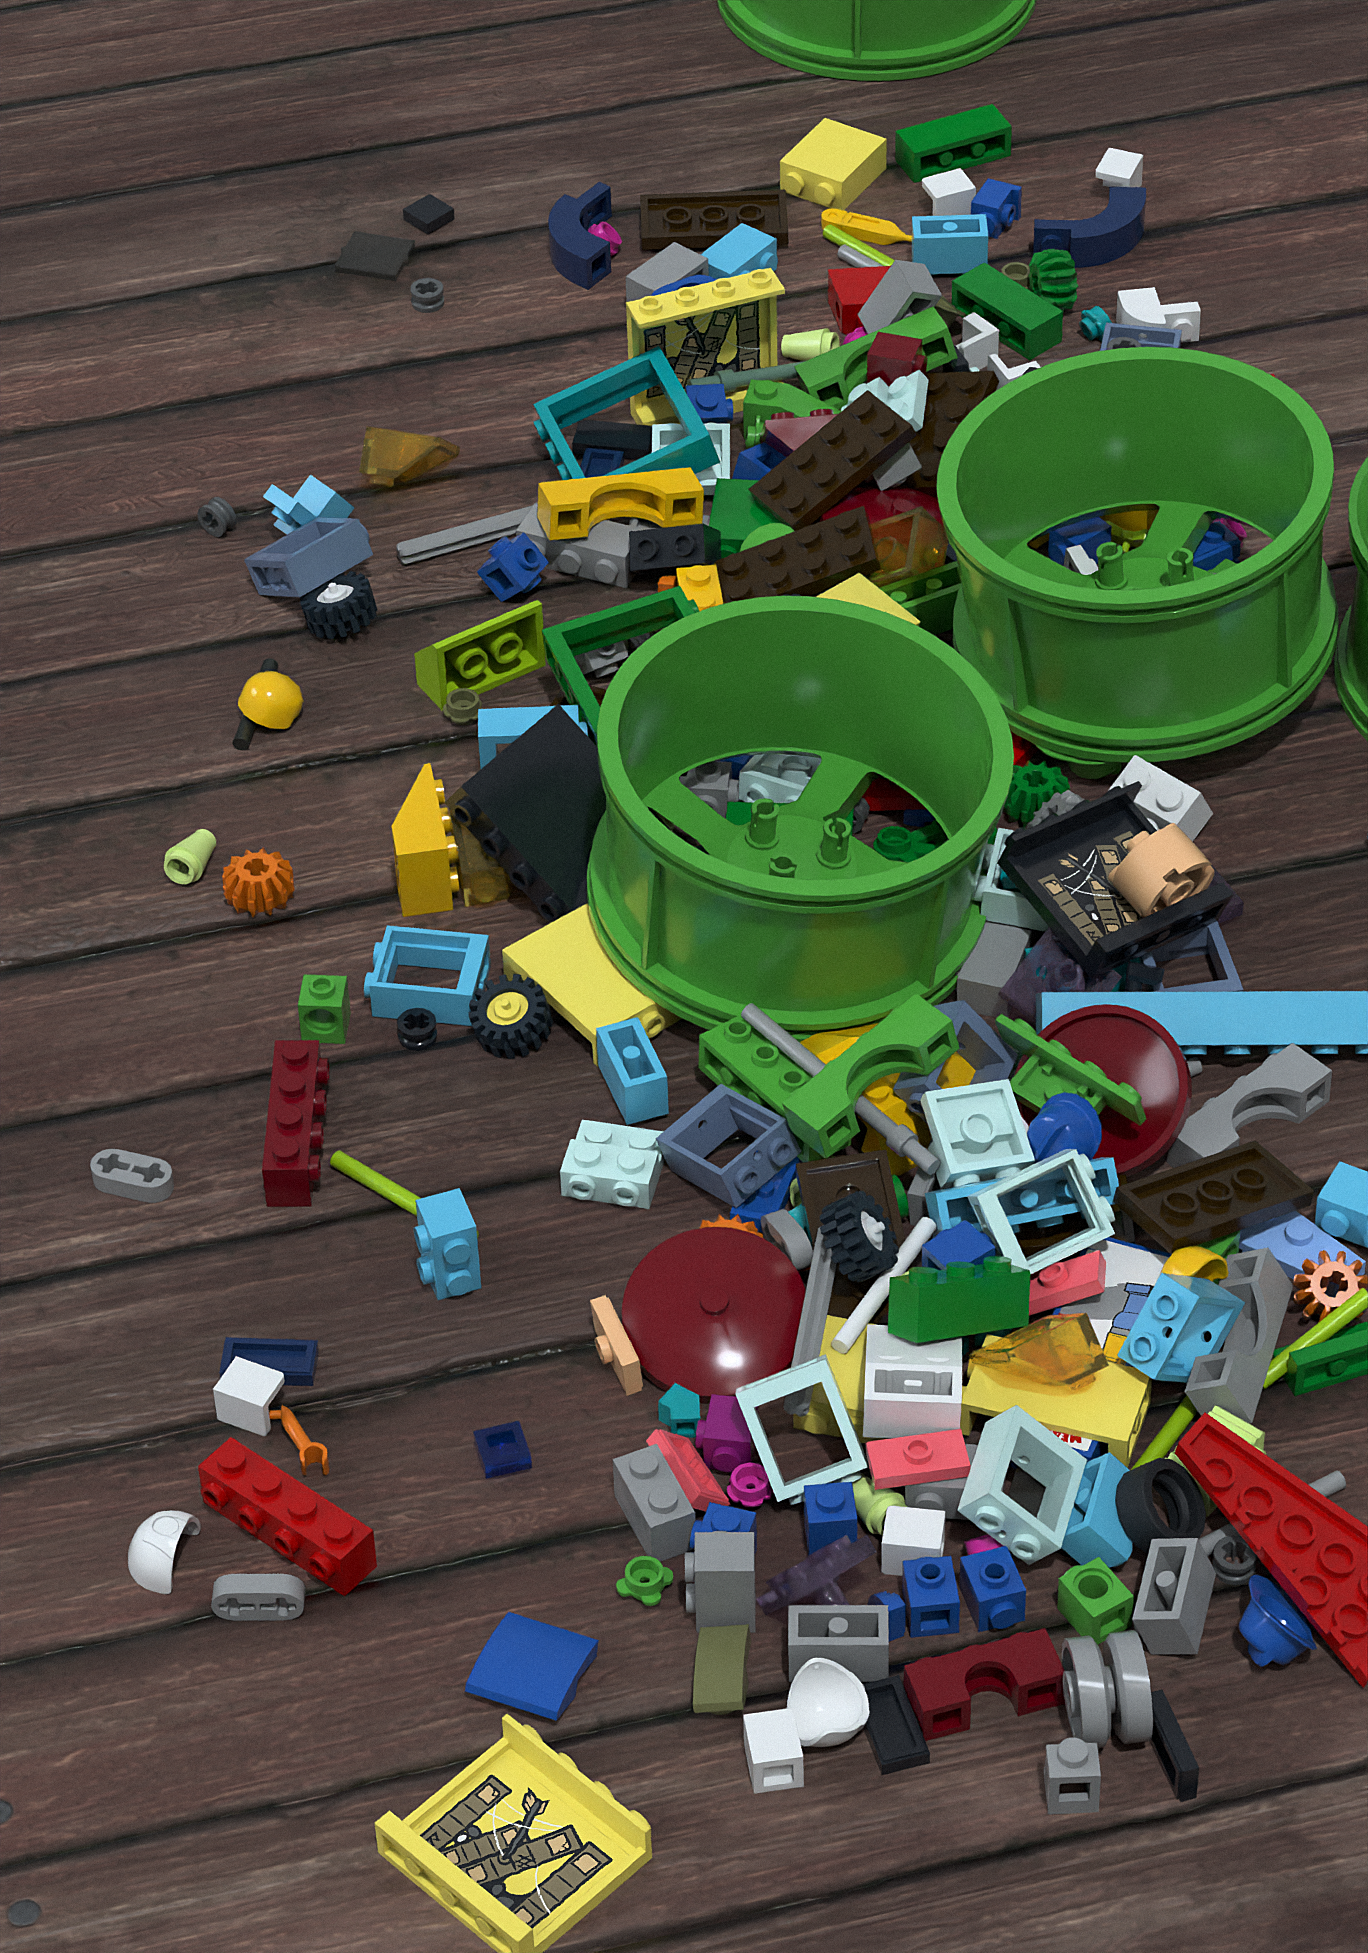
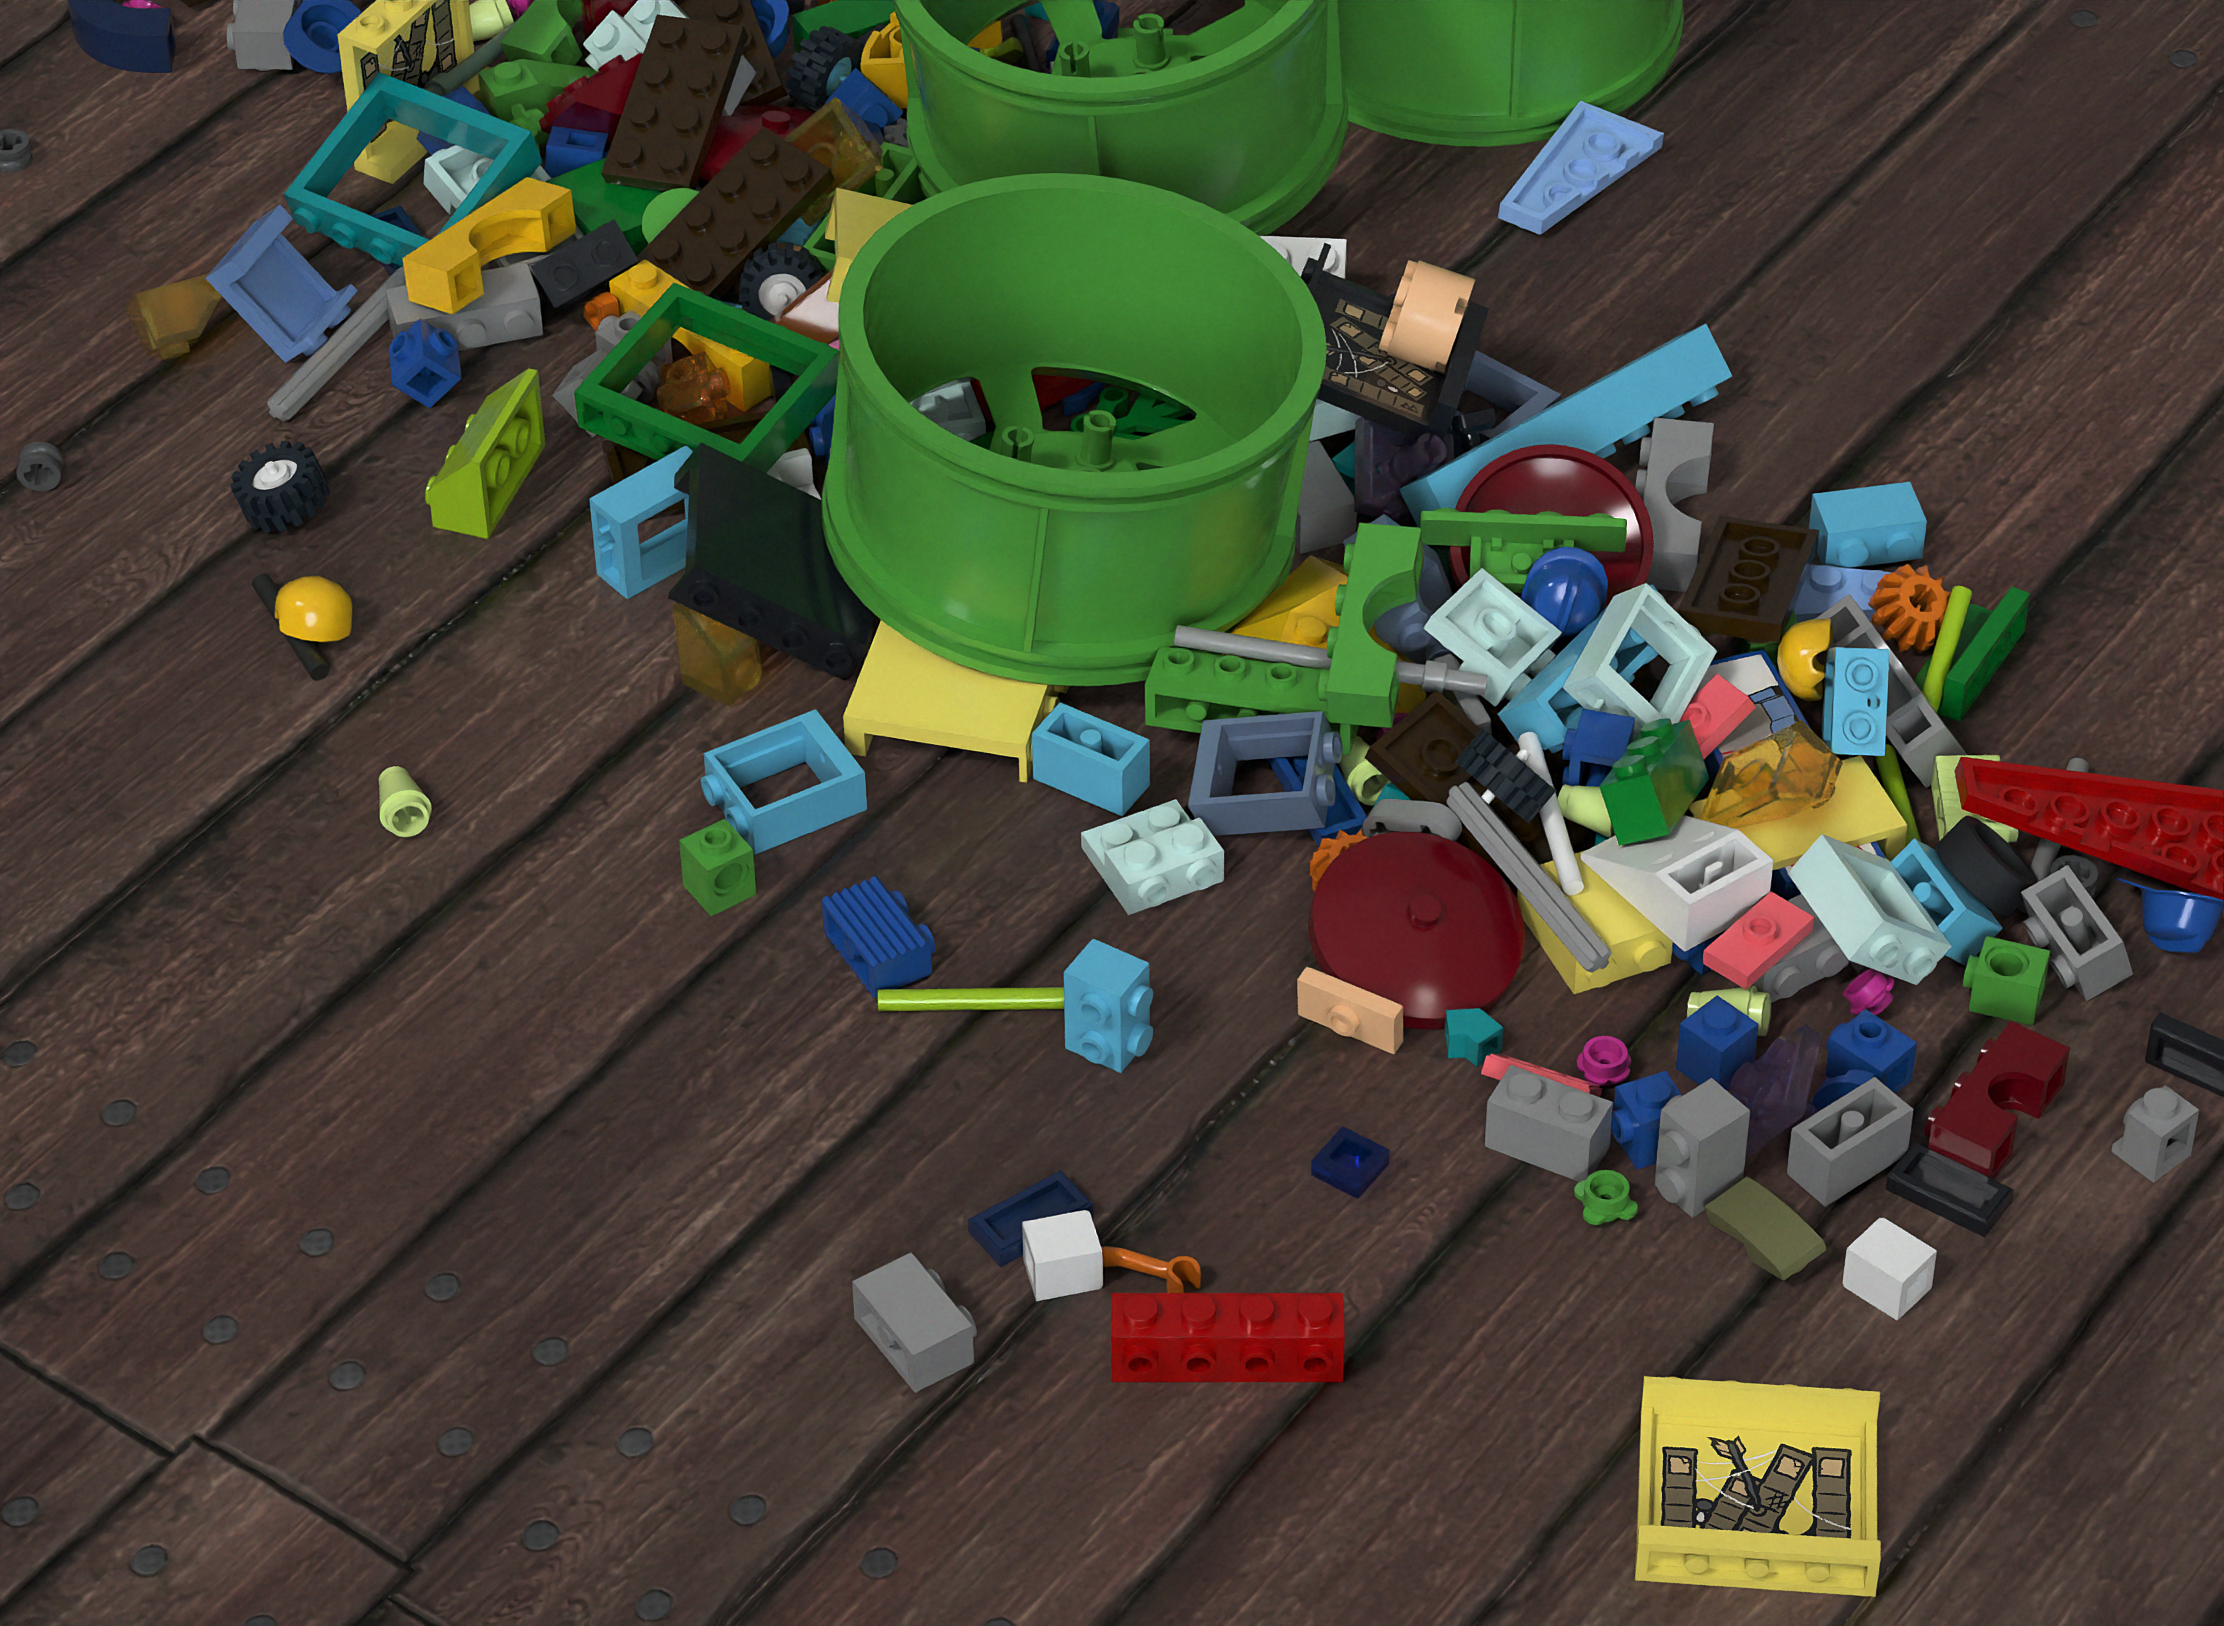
camera: 40 degrees left, 0 degrees up
(109, 1382) = (914, 1321): none -> light grey brick
(132, 1175) = (694, 1129): light grey beam -> none
(154, 1548) = (1136, 1443): white helmet -> none
(258, 882) = (505, 788): orange gear -> none
(258, 1597) = (1279, 1426): light grey beam -> none
(294, 1124) = (812, 987): dark red brick -> none
(309, 556) = (232, 426): sand blue window -> none
(310, 502) = (142, 411): medium azure brick -> none
(374, 1113) = (877, 935): none -> blue brick
(417, 1038) = (816, 828): black bush -> none
(424, 850) = (658, 663): yellow slope -> none
(462, 706) = (517, 521): olive plate -> none
(468, 467) = (279, 289): none -> medium blue panel
(510, 1016) = (910, 775): black wheel -> none
(531, 1666) = (1595, 1331): blue slope -> none
(628, 438) = (382, 193): black tile -> none
(725, 1435) = (1542, 1025): magenta brick -> none
(782, 1384) = (1587, 943): light aqua window -> none
(827, 1703) = (1896, 1192): white helmet -> none
(911, 1535) = (1809, 1004): white panel -> none
(992, 1589) = (1922, 1015): blue brick -> none
(1107, 1688) = (2121, 1037): light grey wheel -> none

